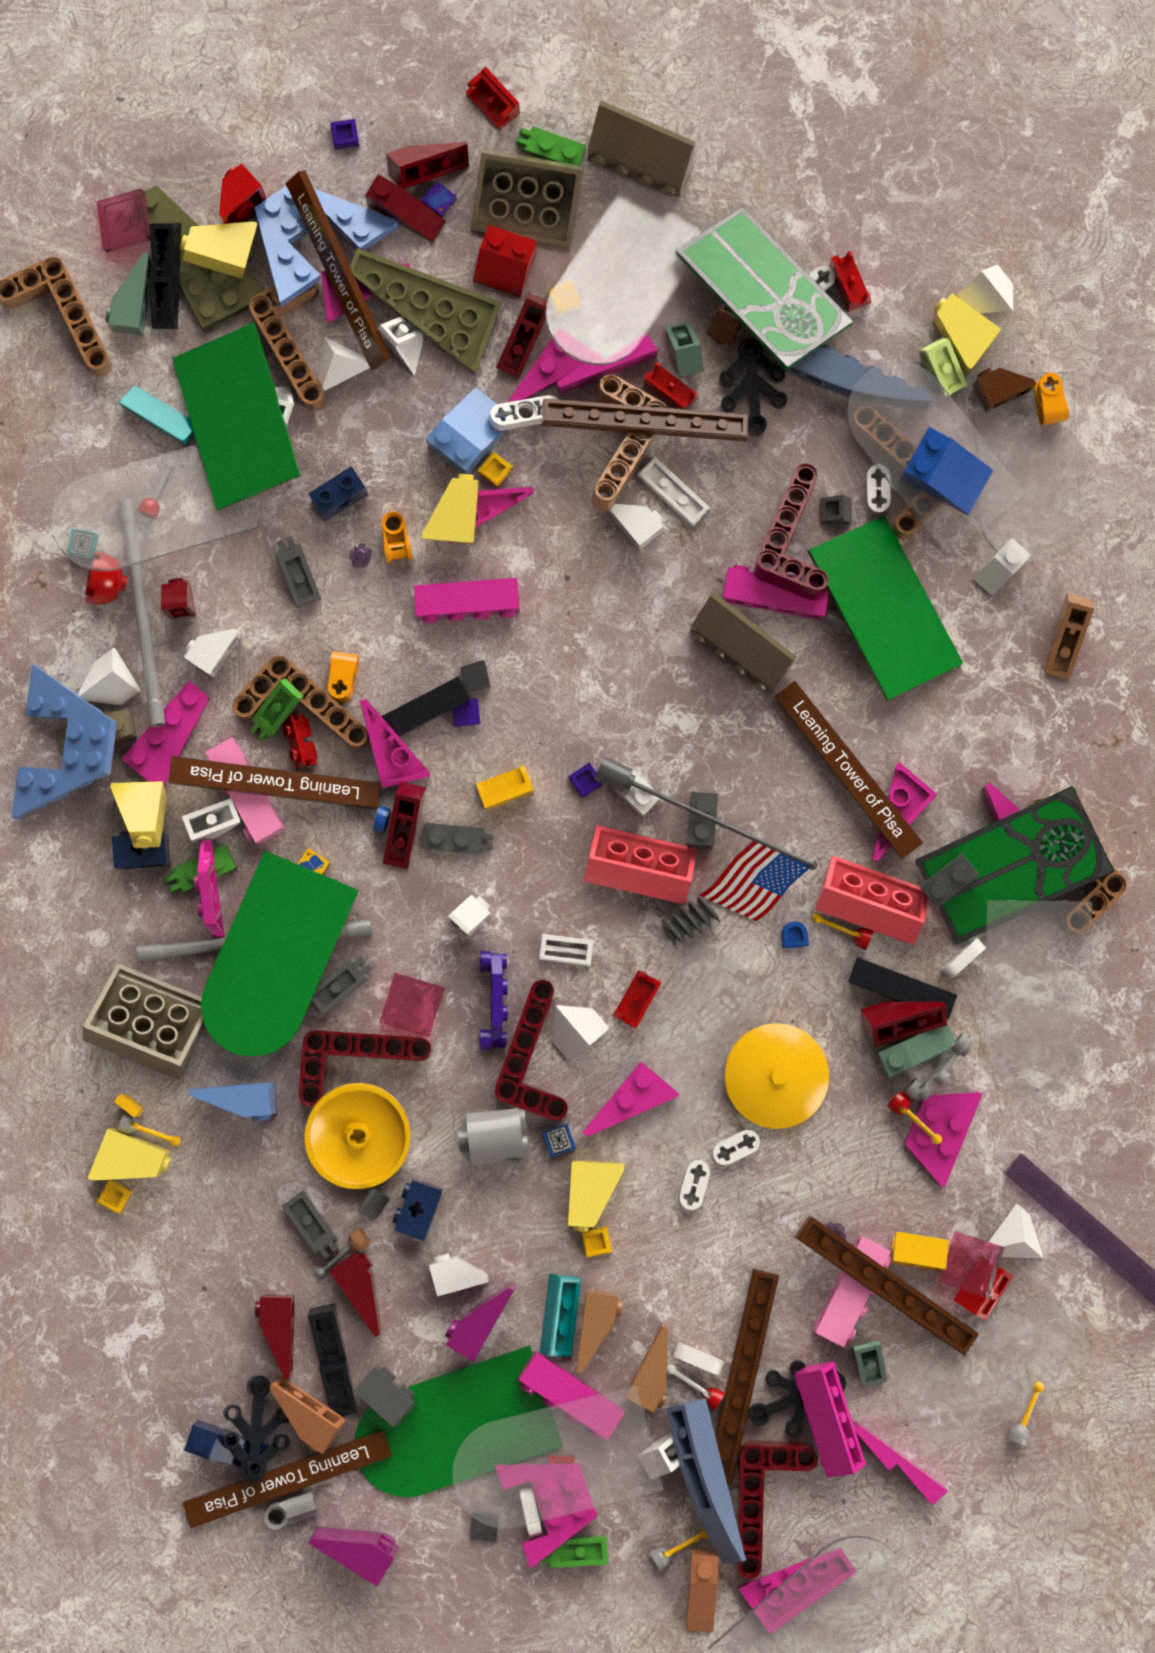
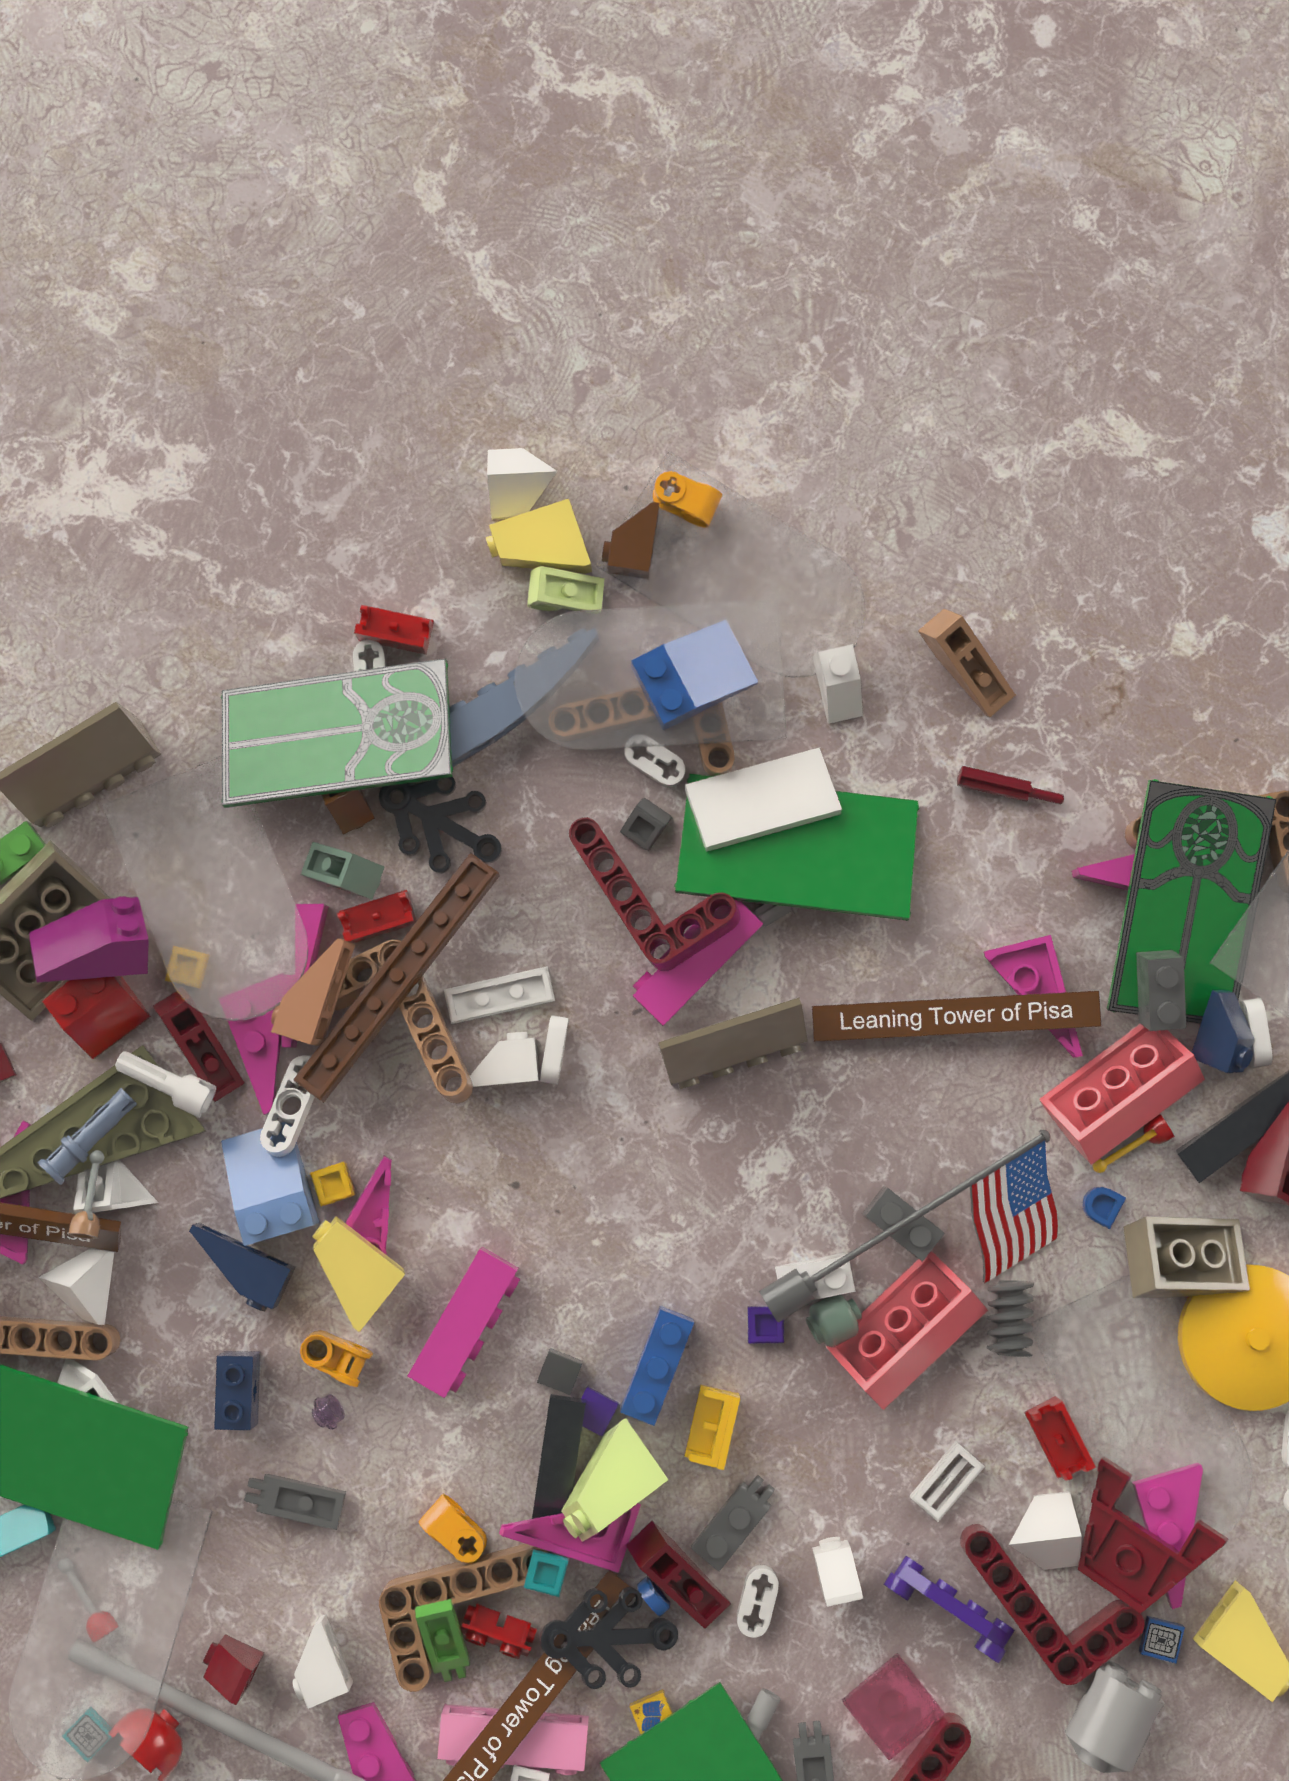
camera: 55 degrees left, 0 degrees up
(339, 801) = (603, 1635): none -> black plant
(355, 742) = (546, 1573): none -> teal tile
(377, 336) = (85, 1223): none -> hinge
(411, 454) = (249, 1270): none -> dark blue slope
(416, 302) = (75, 1148): none -> sand blue pin
(418, 877) = (766, 1602): none -> white beam
(433, 746) = (612, 1482): none -> yellowish green slope
(492, 345) = (186, 1092): none -> white piece
(519, 729) = (657, 1365): none -> blue brick
(543, 229) = (93, 942): none -> magenta slope
(595, 1085) = (1128, 1556): none -> dark red wing
(597, 378) = (310, 1002): none -> nougat slope
(616, 816) = (833, 1320): none -> sand green head
(663, 545) = (554, 1049): none -> white beam
(798, 1002) = (1185, 1257): none -> dark tan slope
(899, 567) = (763, 799): none -> white tile
(949, 936) = (1224, 1034): none -> dark blue slope
(1008, 708) = (1004, 786): none -> dark red axle

